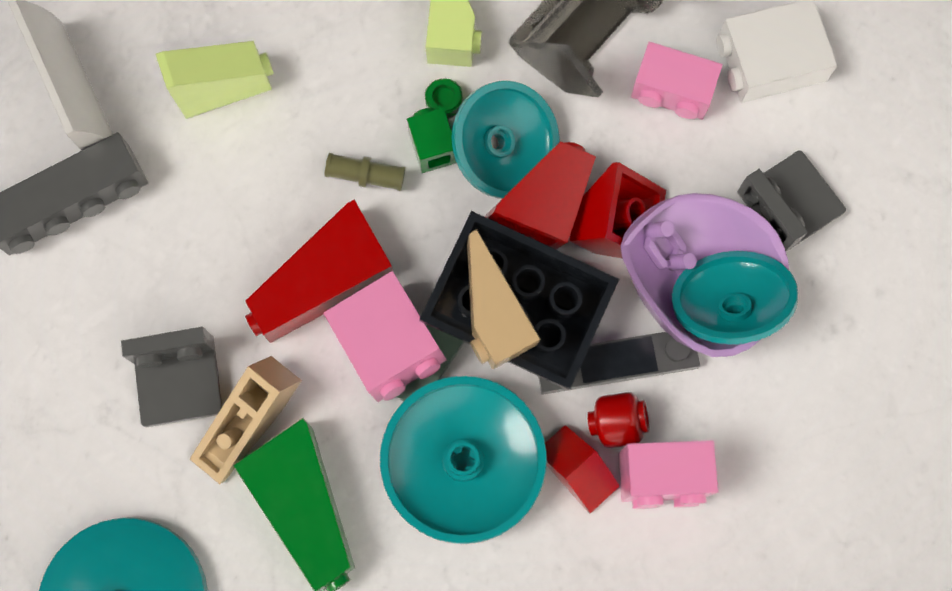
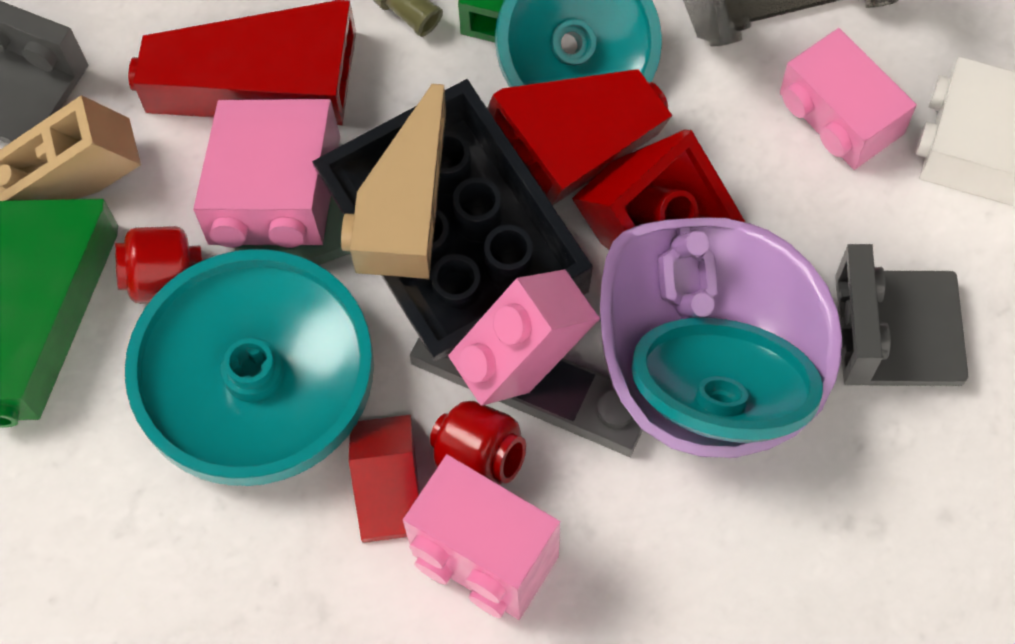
camera: 35 degrees right, 10 degrees down
(358, 434) = (152, 259): none -> red head
(615, 347) = (523, 336): none -> bright pink brick

